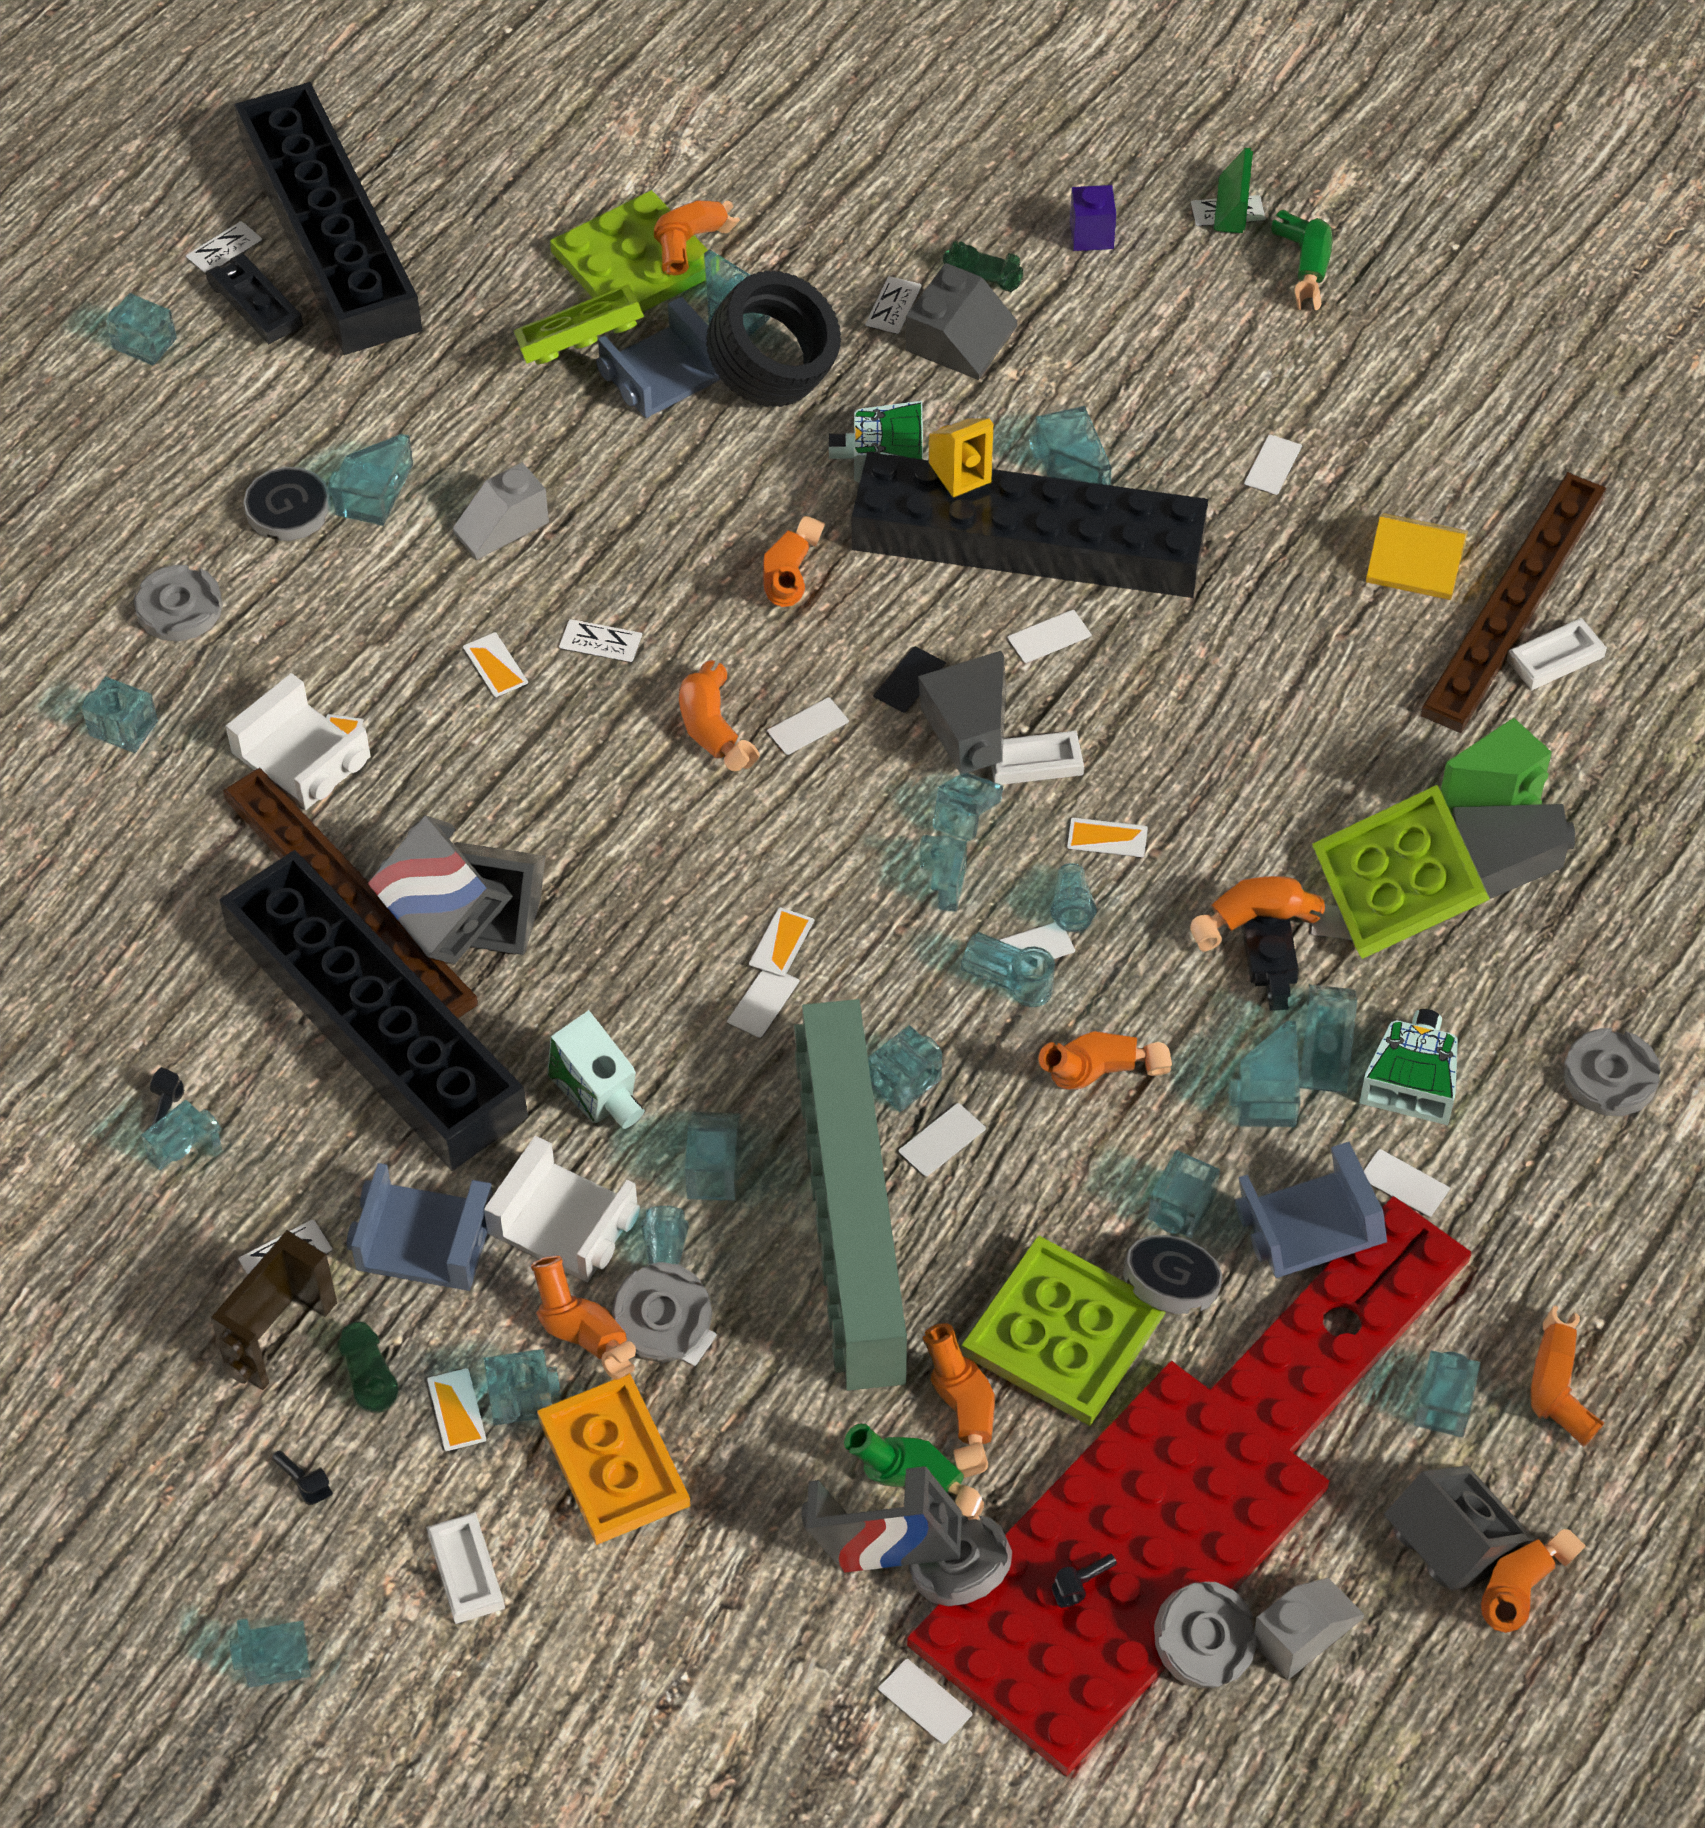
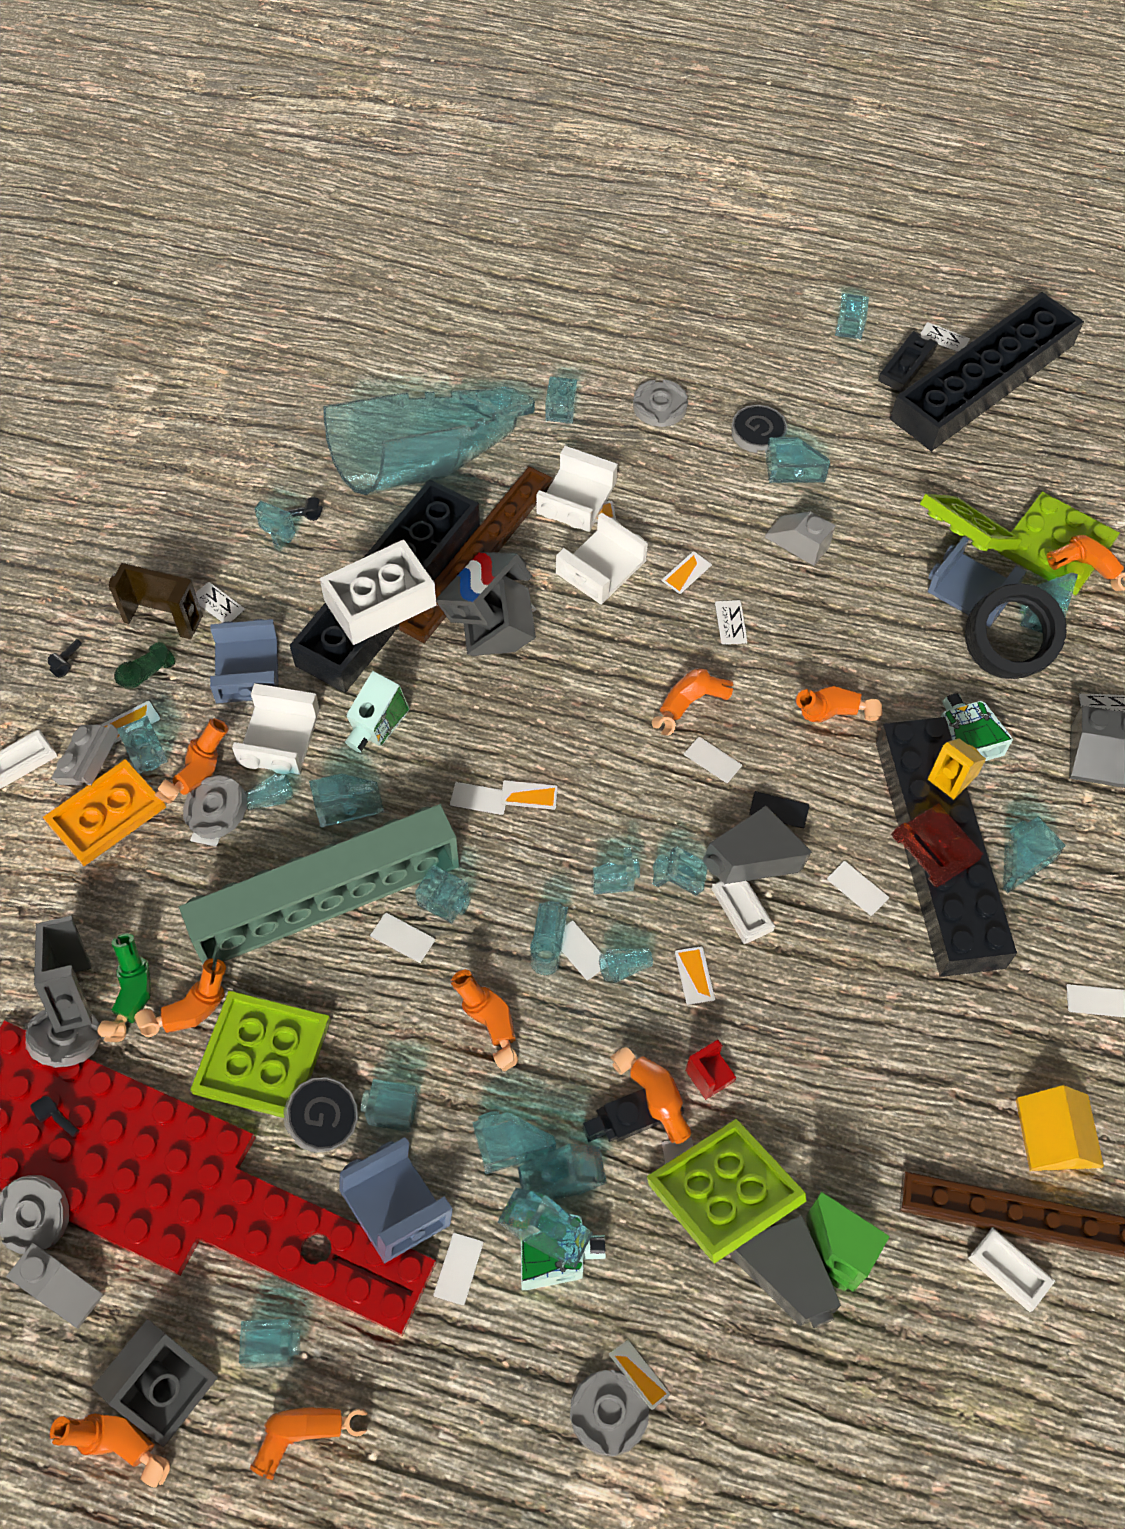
camera: 70 degrees right, 5 degrees up
(132, 891) = (407, 440): none -> clear light blue windscreen
(425, 992) = (378, 591): none -> white brick
(435, 748) = (603, 560): none -> white panel
(505, 1465) = (85, 754): none -> light grey plate
(1050, 507) = (943, 839): none -> clear red plate
(1244, 854) = (709, 1070): none -> red panel
(1399, 1048) = (545, 1226): none -> clear light blue slope
(1579, 1028) = (639, 1374): none -> sticker

